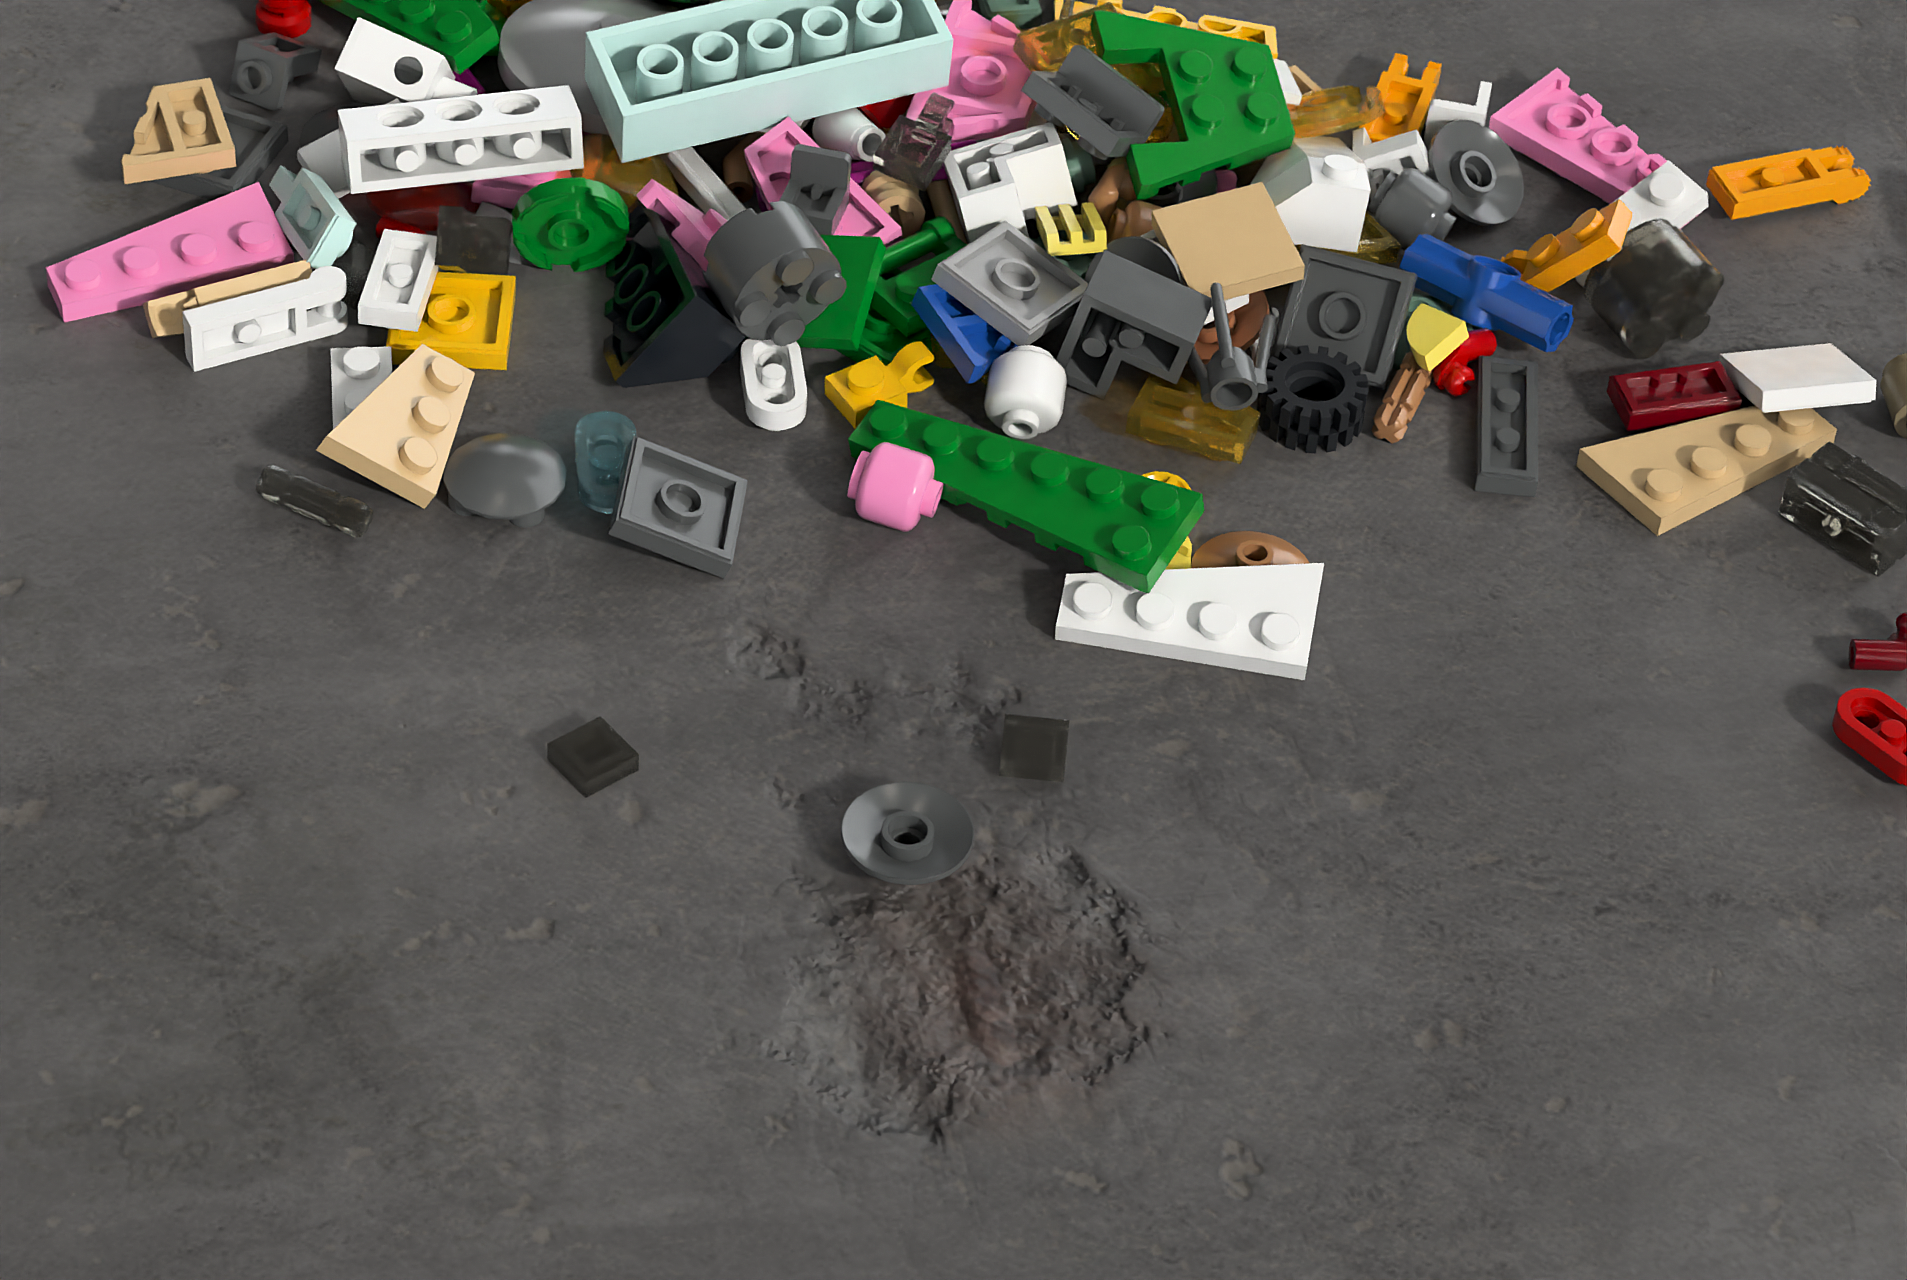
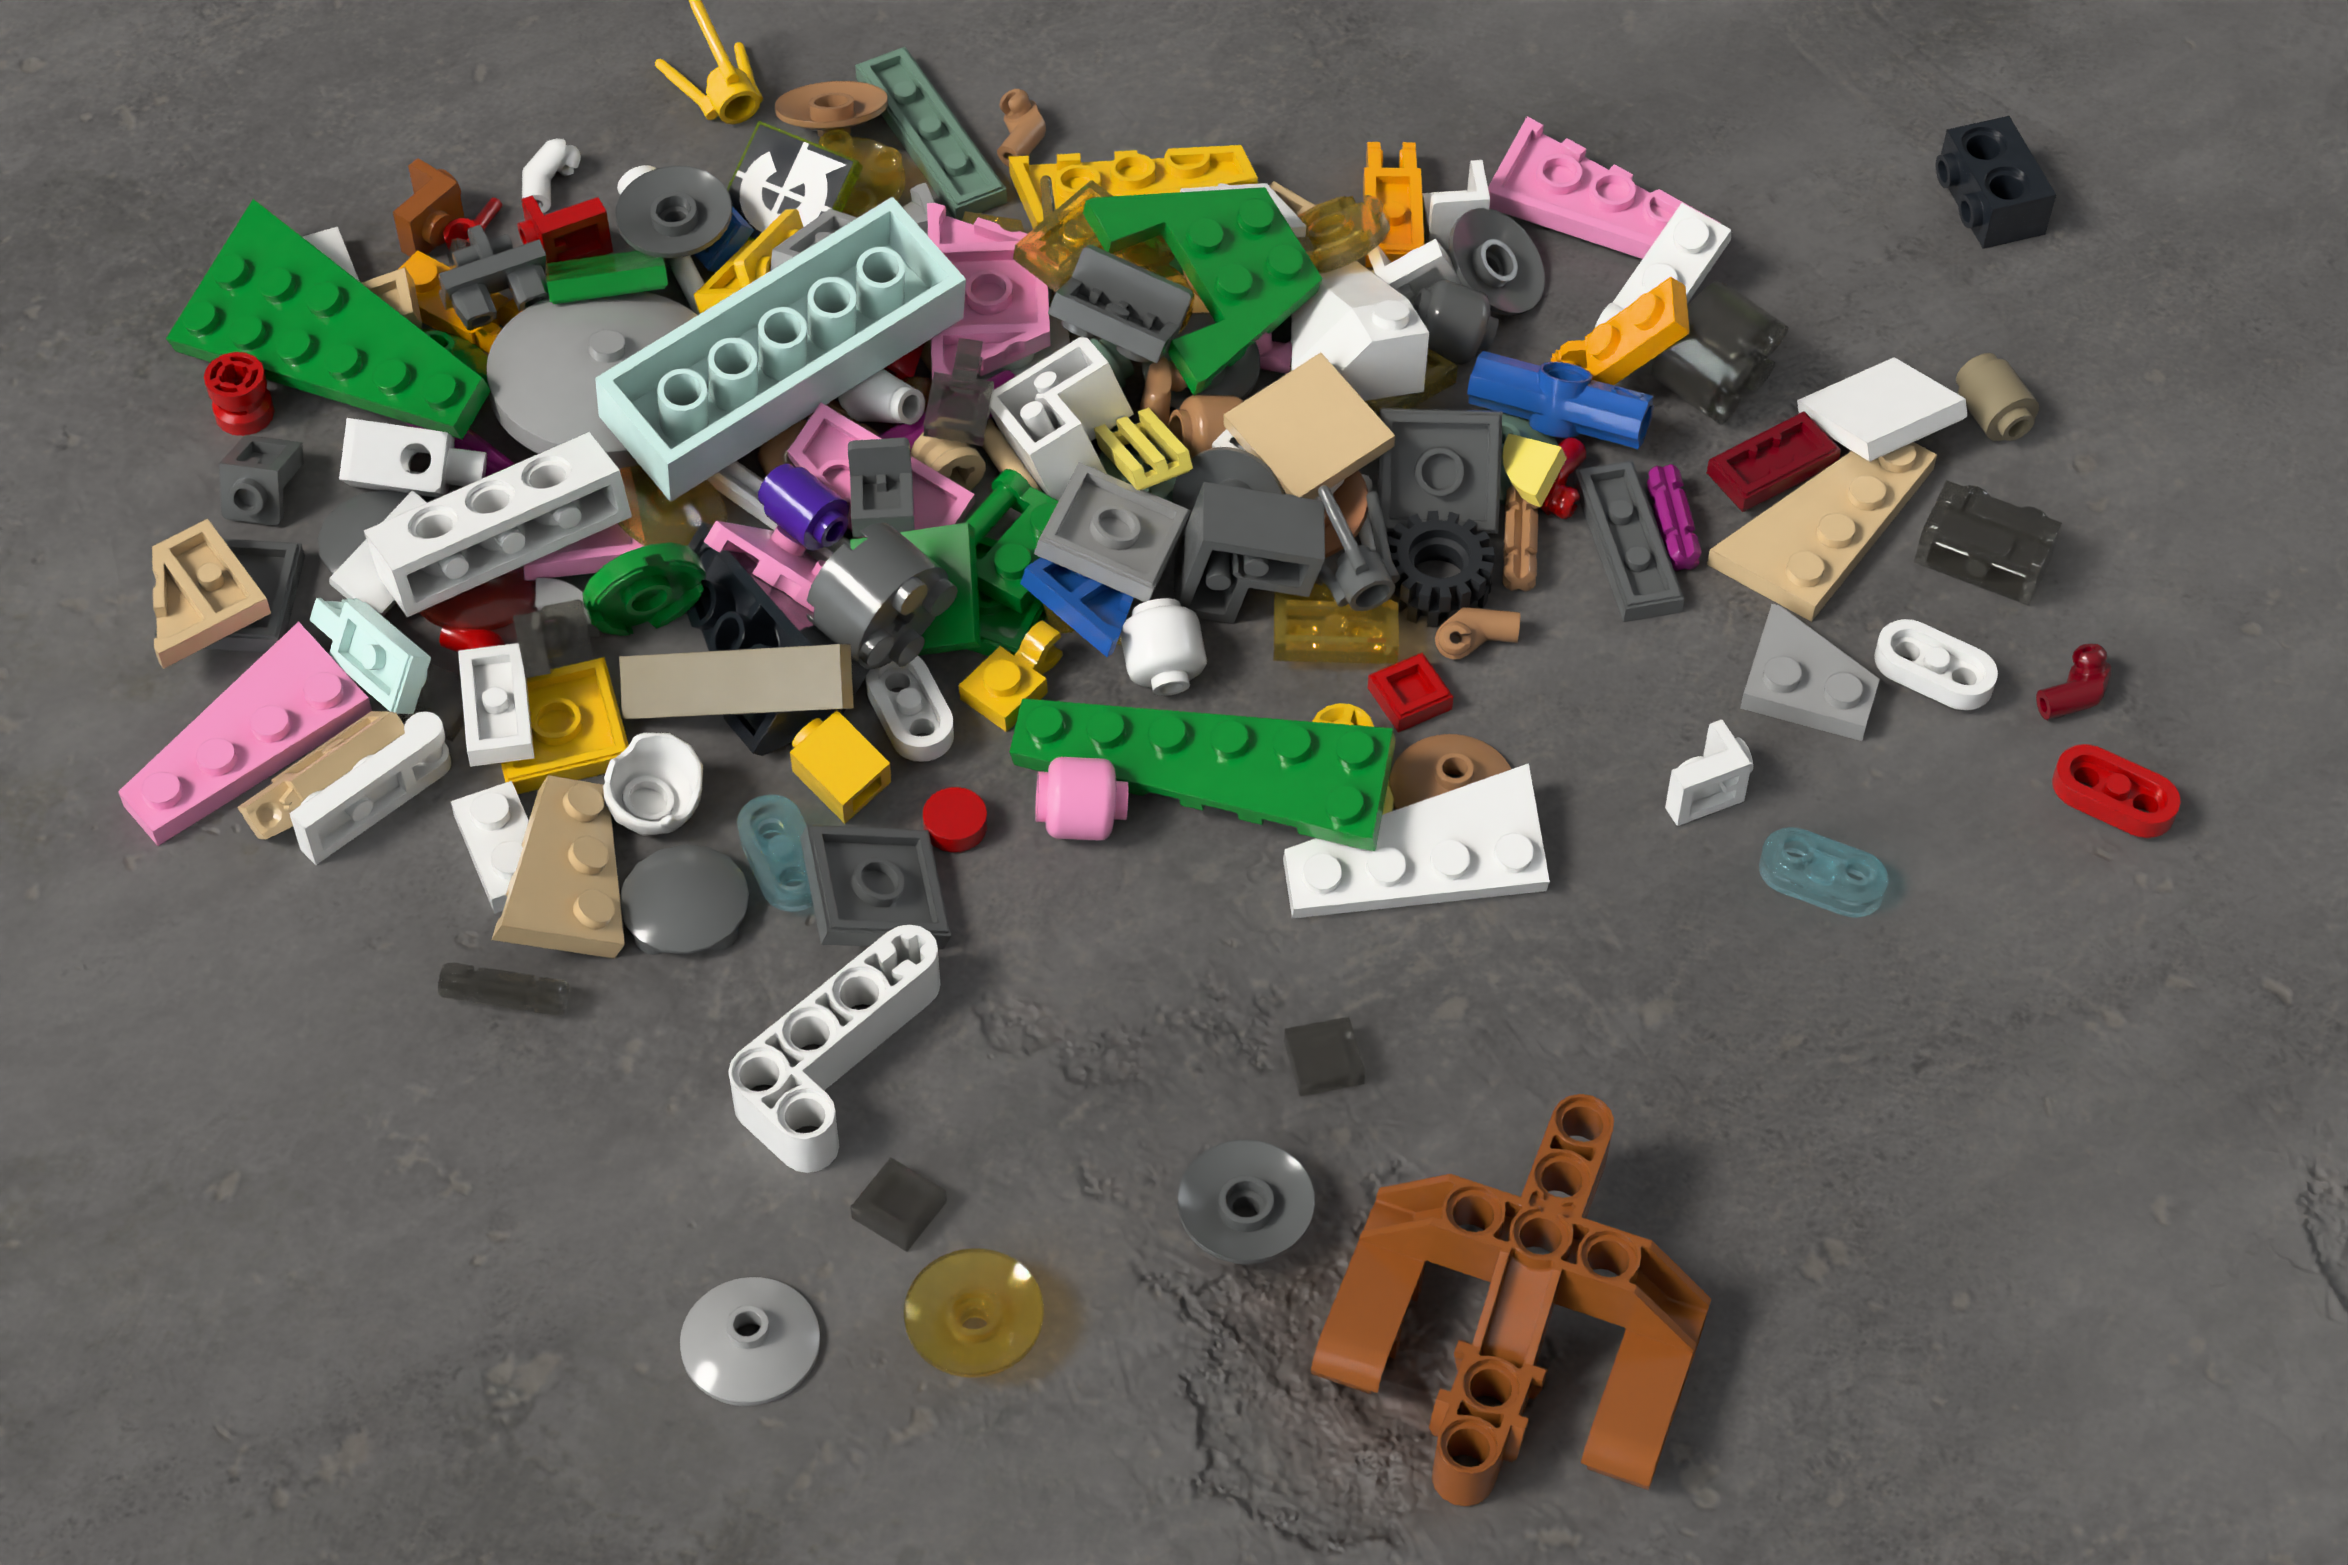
camera: 15 degrees left, 10 degrees up
(414, 825) = (756, 1366): none -> light grey dish
(514, 377) = (654, 784): none -> white hair
(585, 606) = (894, 977): none -> white beam
(619, 311) = (736, 681): none -> tile
(620, 849) = (970, 1286): none -> clear yellow dish
(686, 404) = (839, 765): none -> yellow brick
(734, 186) = (804, 506): none -> dark purple brick
(776, 480) = (955, 819): none -> red tile
(1140, 930) = (1647, 1297): none -> dark orange piece
(1244, 491) = (1410, 692): none -> red tile
(1325, 454) = (1472, 628): none -> medium nougat arm
(1496, 626) = (1710, 780): none -> white bracket
(1558, 417) = (1674, 516): none -> magenta axle
(1575, 731) = (1822, 872): none -> clear light blue plate
(1630, 577) = (1808, 679): none -> light grey wing
(1759, 593) = (1936, 664): none -> white plate
(1787, 181) = (1784, 184): light orange hinge -> none

